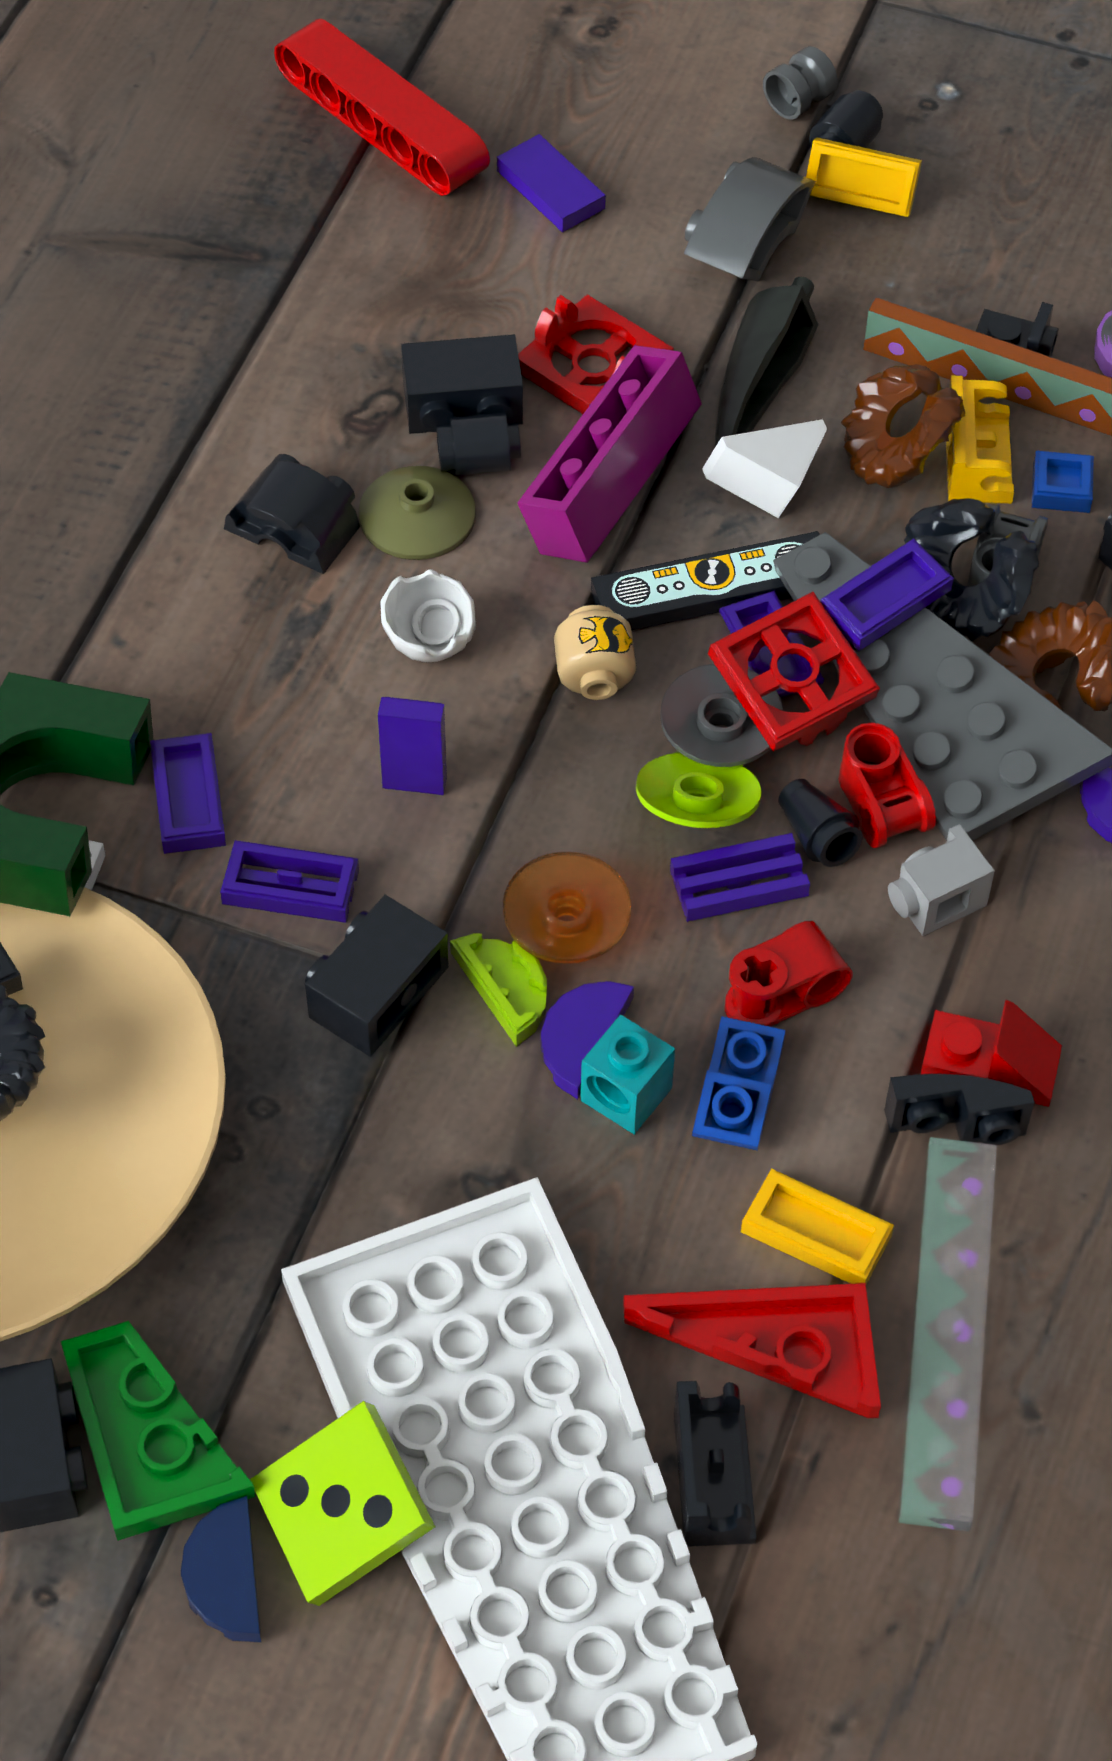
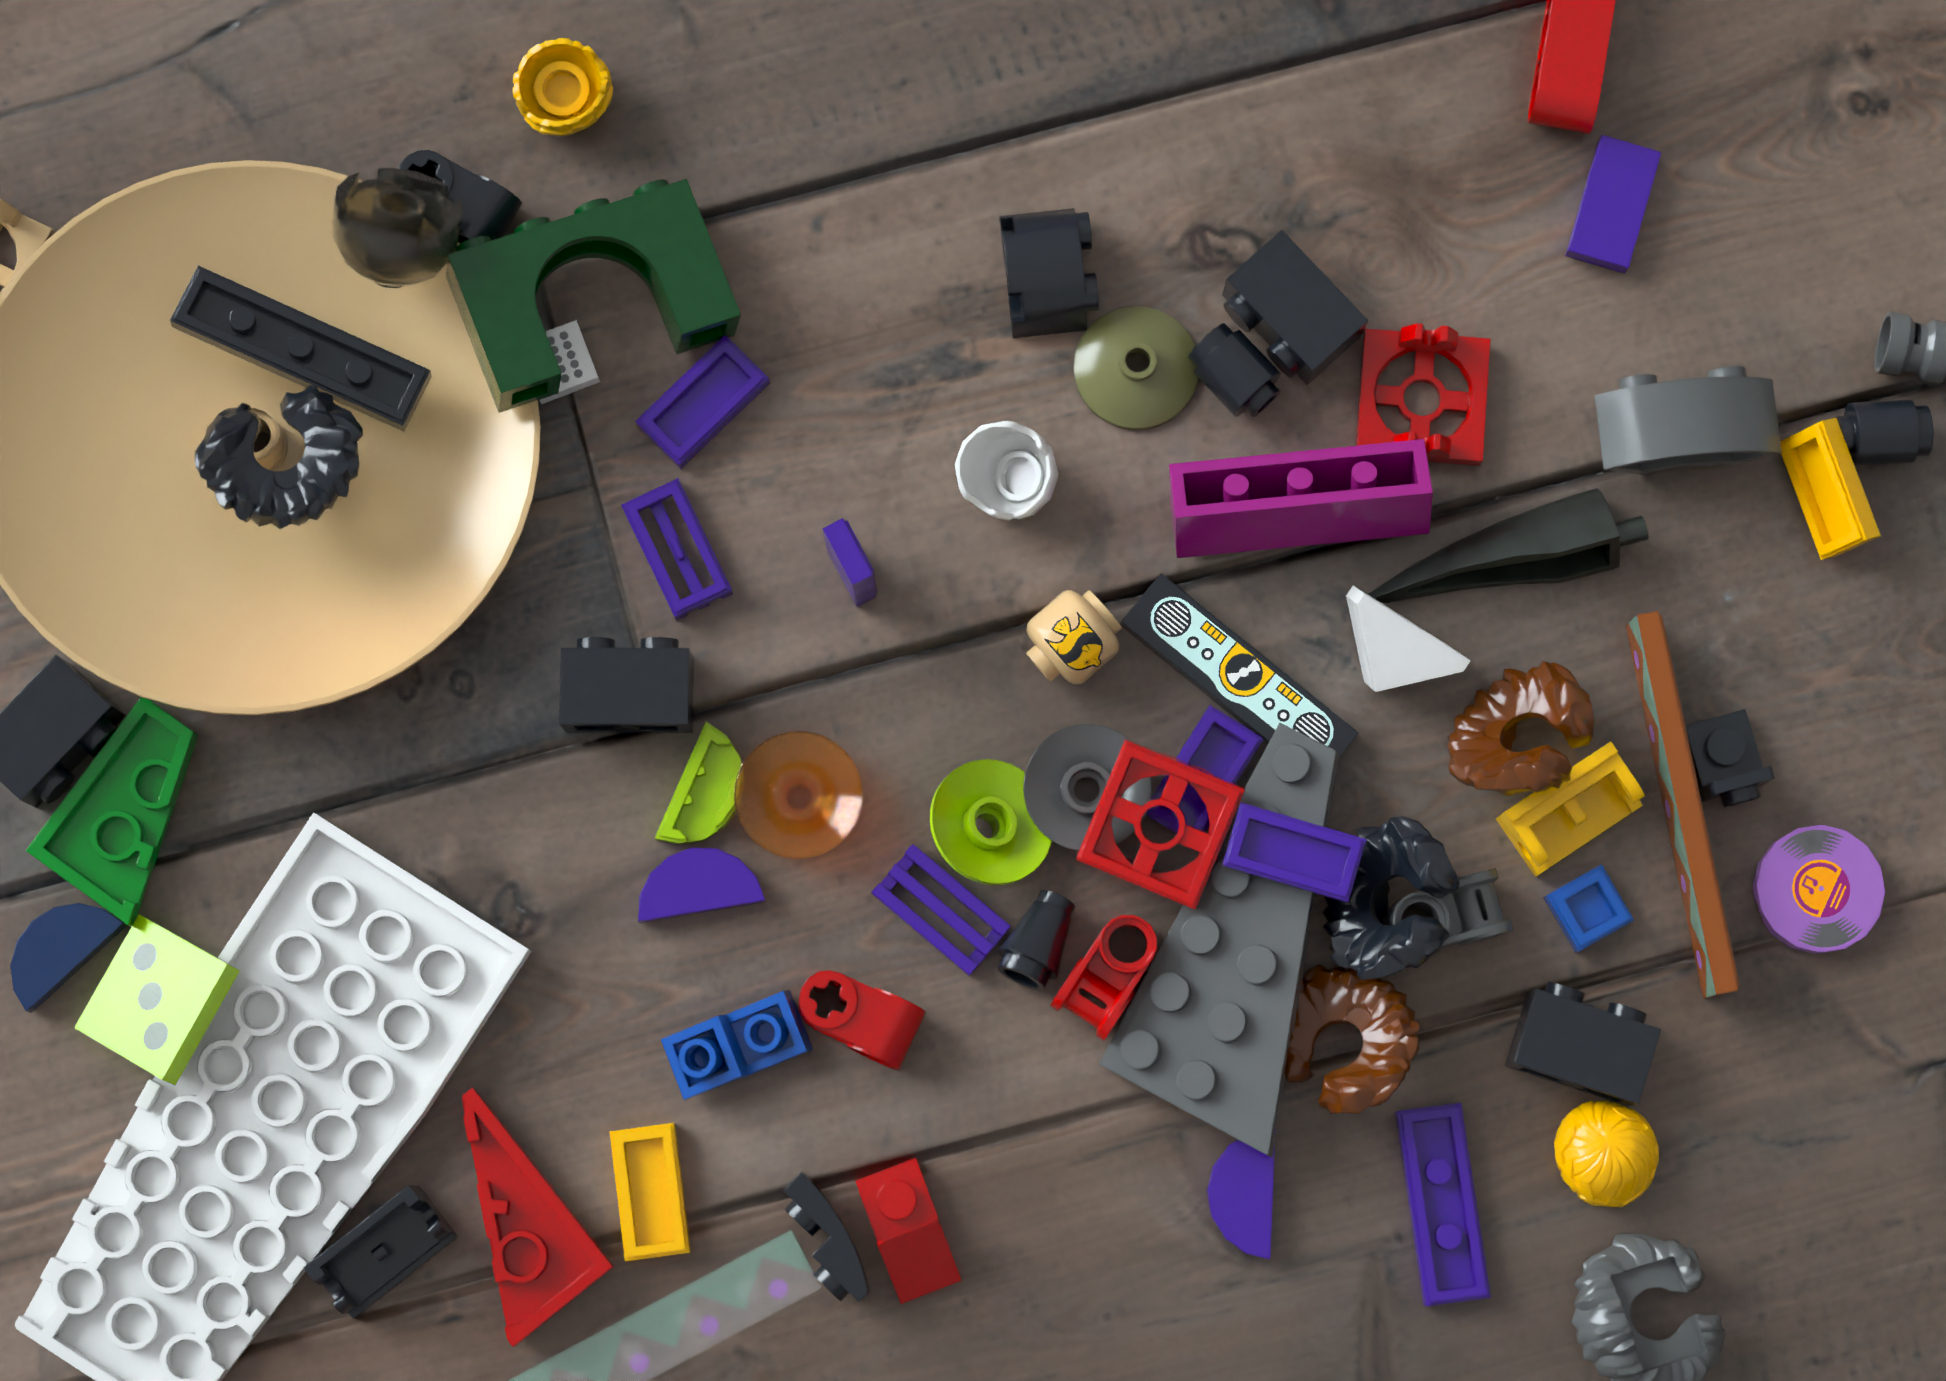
camera: 55 degrees right, 25 degrees up
(627, 1074) = (670, 954): teal brick -> none
(942, 883) = (1042, 1082): light grey brick -> none

